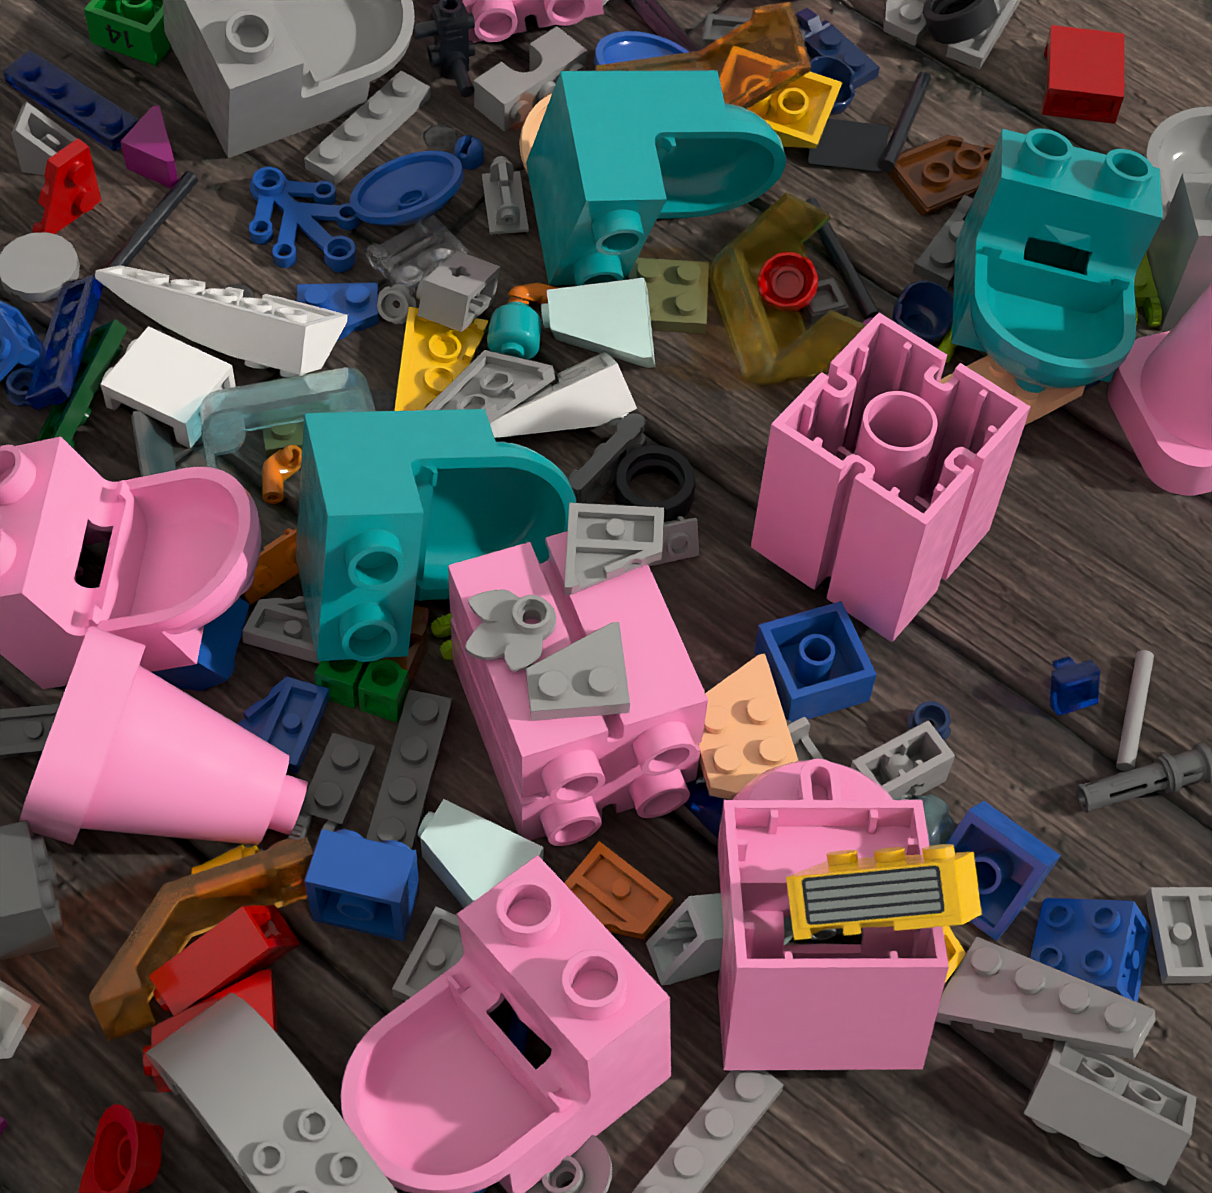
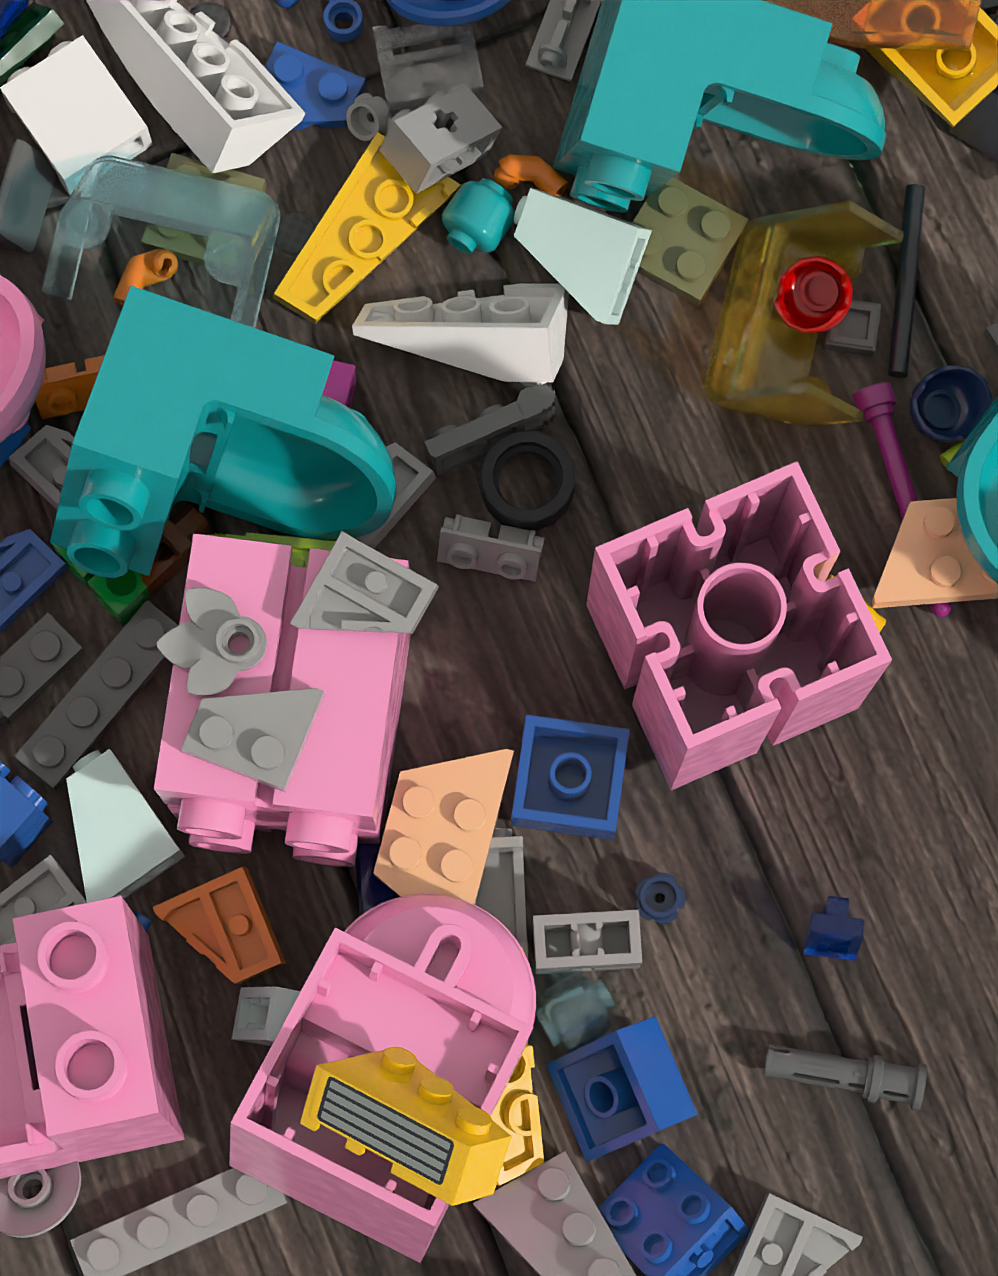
camera: 30 degrees right, 20 degrees up
(494, 384) = (382, 291): light grey wing -> none
(1135, 711) = (888, 989): light grey bar -> none

